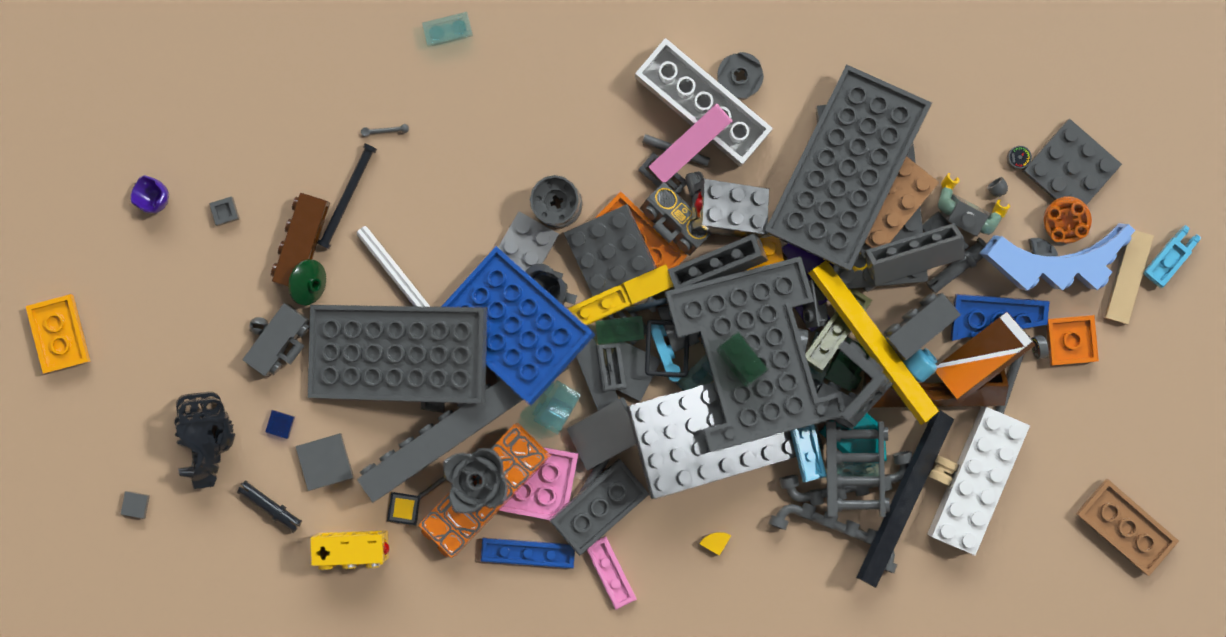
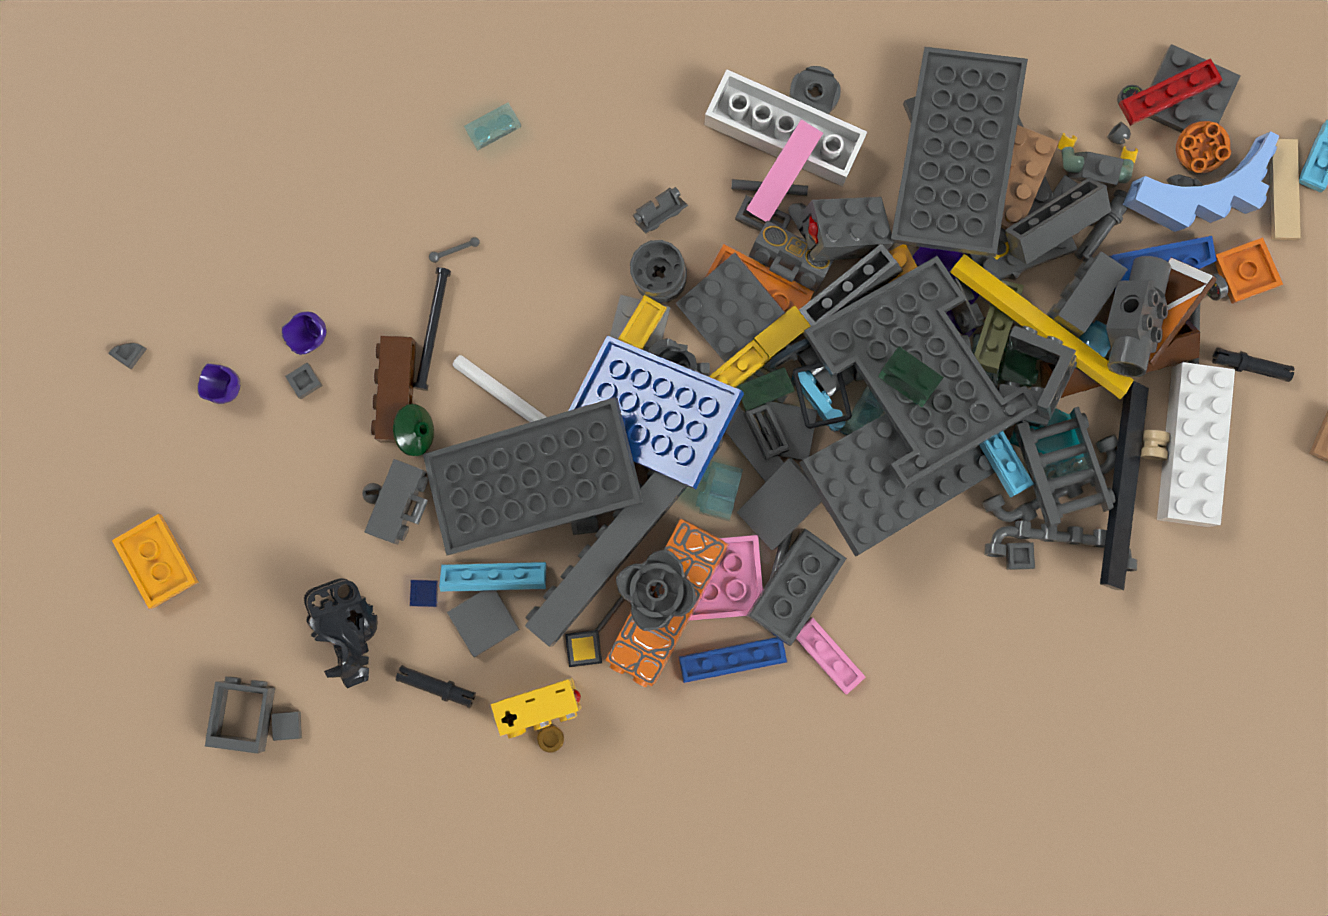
camera: 15 degrees left, 5 degrees down
(78, 145) = (128, 353): none -> dark grey tile
(89, 508) = (215, 739): none -> dark grey window
(235, 170) = (304, 332): none -> dark purple hair
(342, 426) = (493, 576): none -> medium azure tile
(355, 577) = (550, 739): none -> pearl gold tile
(529, 243) = (642, 323): none -> yellow tile
(583, 143) = (650, 217): none -> dark grey hinge
(715, 541) = (933, 590): yellow tile -> none
(799, 533) = (1020, 556): none -> dark grey tile
(957, 358) = (1138, 316): none -> dark grey brick
(1042, 419) = (1242, 361): none -> black pin
(1053, 163) = (1170, 92): none -> red tile

